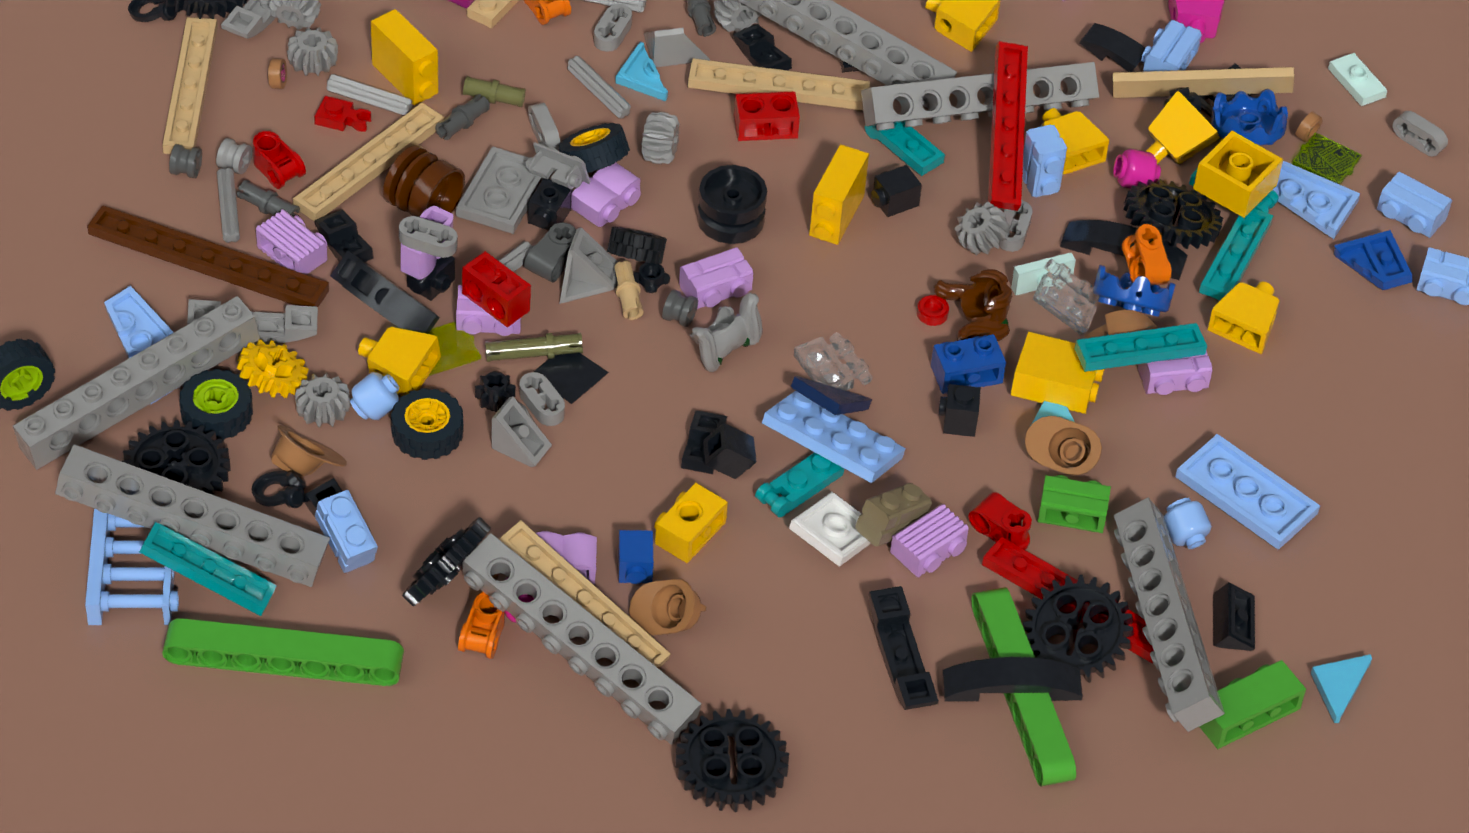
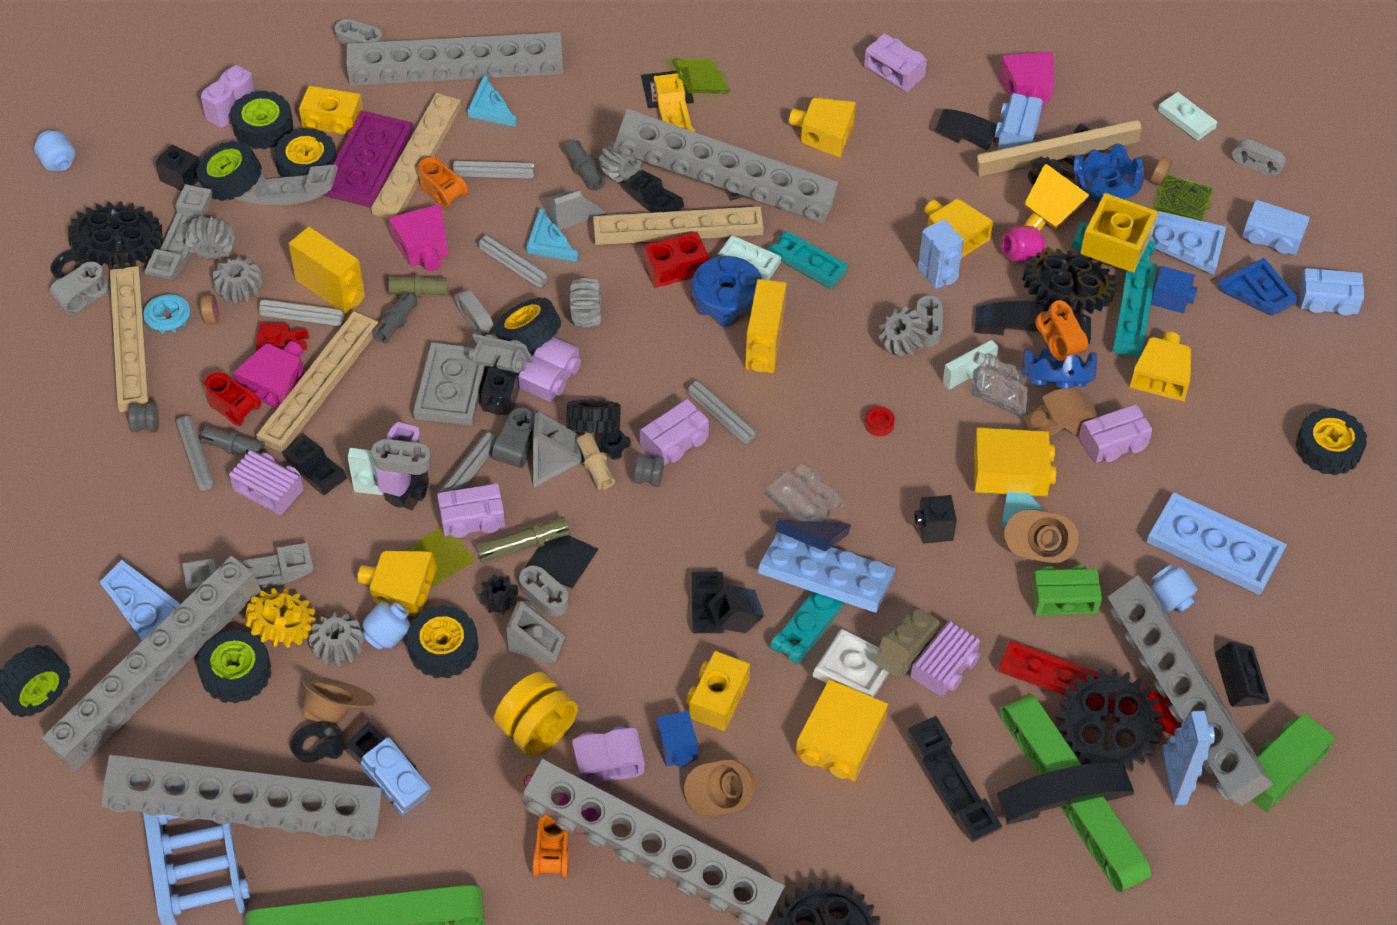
camera: 10 degrees left, 5 degrees up
(150, 30) = (79, 290): none -> light grey piece
(182, 456) = (212, 739): black gear -> none
(207, 258) = (189, 513): reddish brown plate -> none
(208, 568) = (270, 849): teal plate -> none
(234, 156) = (189, 402): light grey wheel -> none
(243, 64) = (175, 305): none -> medium azure gear
(324, 143) = (272, 372): none -> dark pink torso
(383, 295) = (368, 518): black slope -> none
(389, 251) = (363, 471): none -> light aqua plate
(421, 181) = (378, 396): reddish brown wheel -> none
(445, 561) = (496, 807): black gear -> none
(496, 289) = (477, 493): red brick -> none
(500, 497) = (535, 713): none -> yellow wheel
(510, 45) = (421, 236): none -> dark pink torso
(575, 585) = (630, 788): tan plate -> none
(617, 29) = (504, 199): light grey beam -> none
(729, 332) = (701, 486): light grey hair -> none
(732, 204) = (669, 355): black wheel -> none
(772, 270) = (722, 412): none -> light grey axle
(802, 164) = (725, 302): none -> blue plate
(803, 583) = (841, 730): none -> yellow brick
(843, 128) = (762, 259): none -> light aqua plate
(879, 100) = (779, 227): light grey brick -> none
(896, 191) = (814, 309): black brick -> none
(968, 362) = (928, 469): blue brick -> none
(982, 303) = (927, 406): reddish brown hair -> none
(999, 518) = (1004, 623): red piece -> none
(1008, 126) = (902, 228): red plate -> none
(1140, 347) = (1084, 423): teal plate -> none
(1142, 669) = (1186, 755): none -> light blue wing
(1283, 243) = (1174, 290): none -> blue brick
(1339, 682) = (1356, 720): medium azure tile -> none
(1402, 420) = (1317, 445): none -> black wheel

